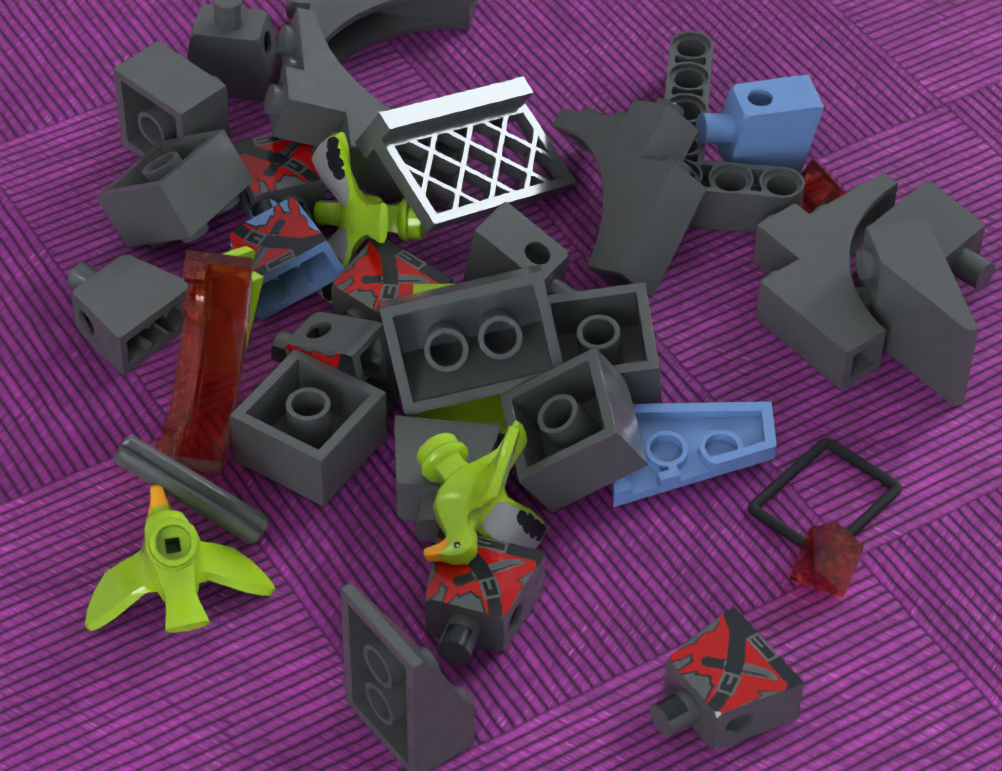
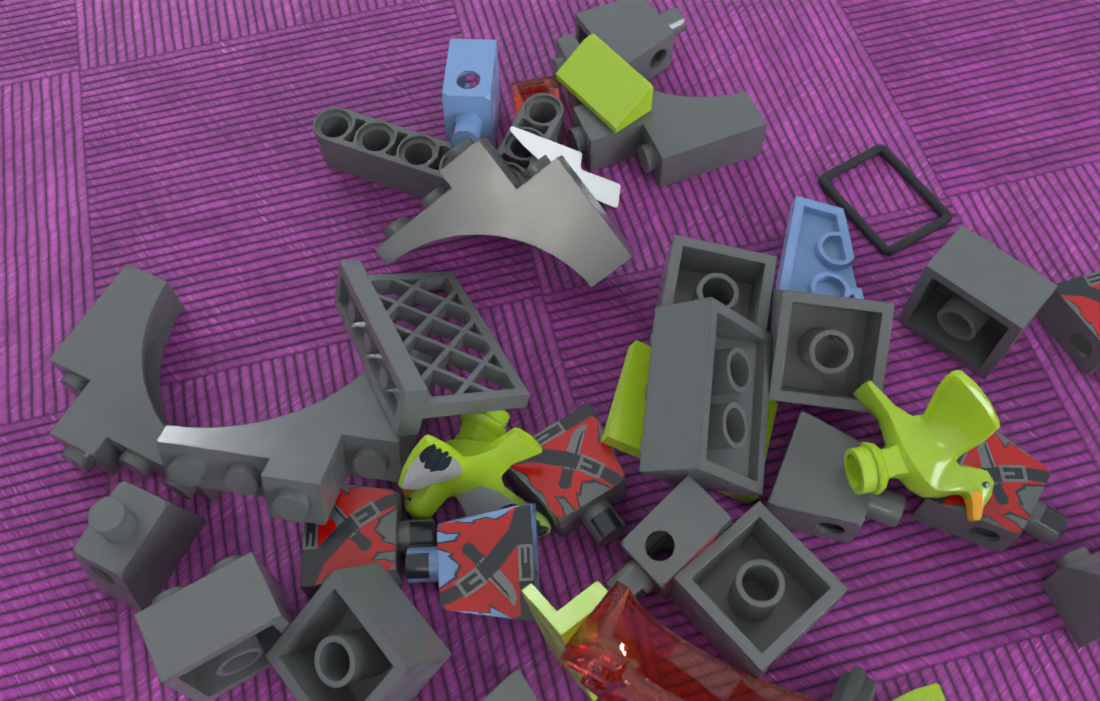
camera: 70 degrees left, 15 degrees up
(513, 242) = (582, 344): dark grey torso -> none
(682, 543) = (974, 301): none -> dark grey brick
(726, 219) = (601, 188): none -> white sticker
(826, 213) = (606, 84): none -> lime slope
(827, 559) = (967, 210): clear red slope -> none
(919, 305) = (732, 53): dark grey slope -> none

